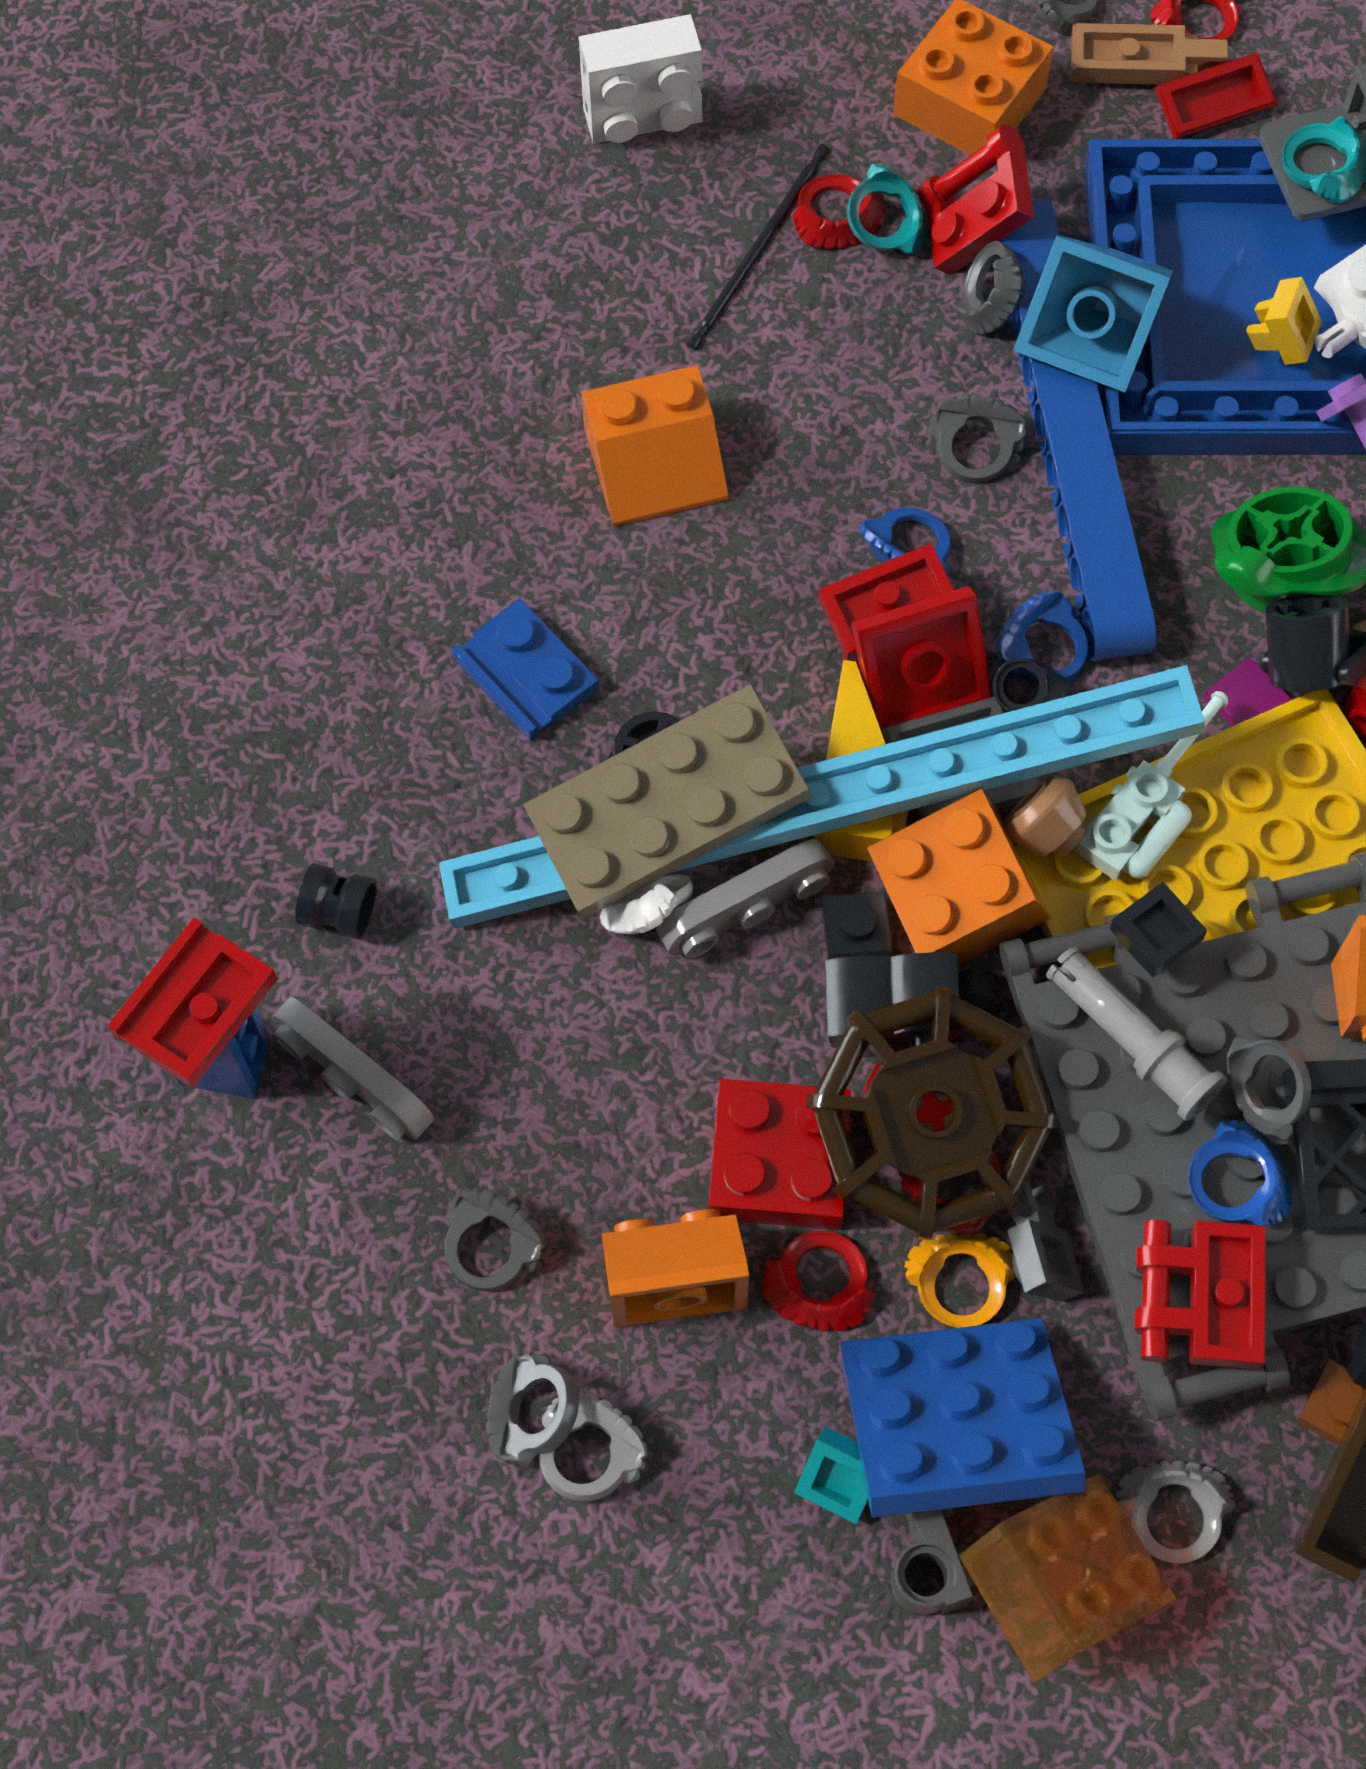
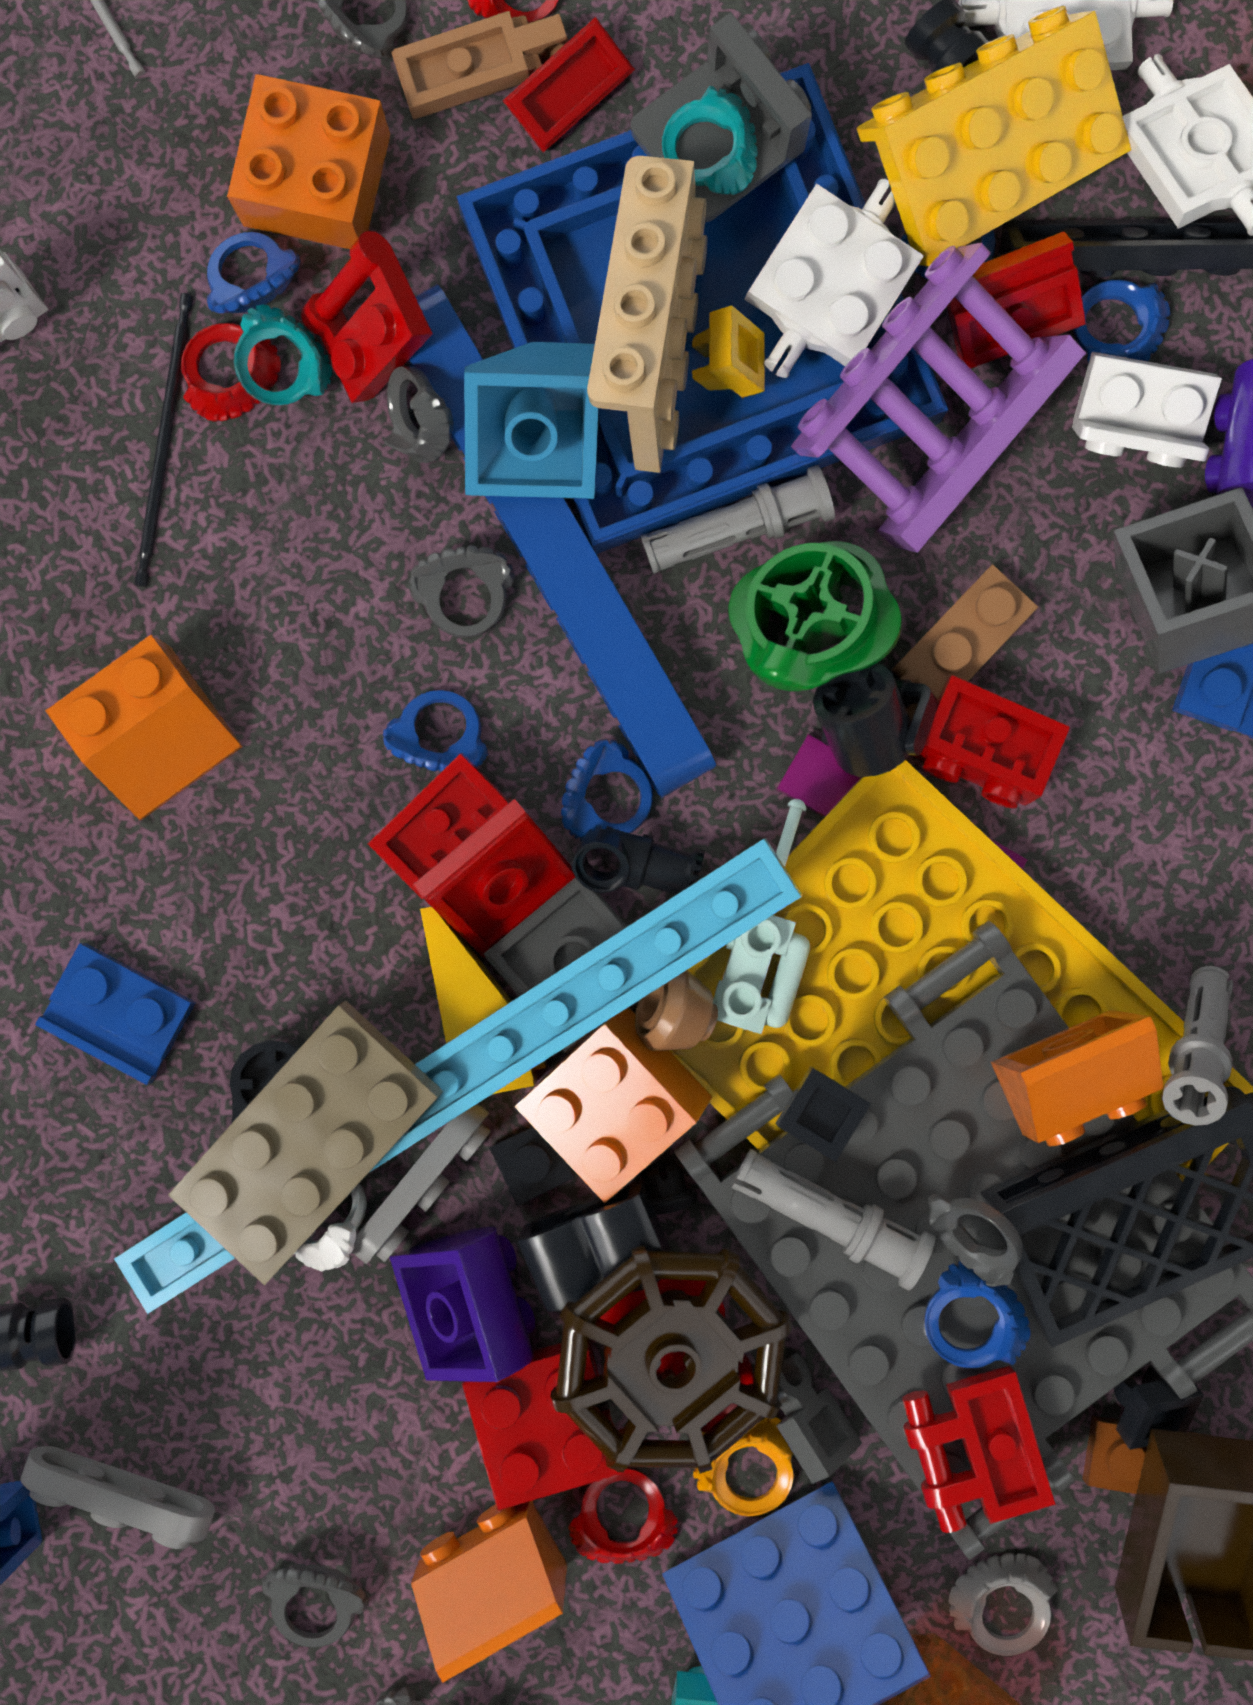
camera: 20 degrees left, 20 degrees up
(747, 1010) = (465, 1306): none -> dark purple brick
(860, 157) = (231, 298): none -> blue piece
(1232, 252) = (650, 303): none -> tan bracket
(1274, 465) = (766, 512): none -> light grey pin

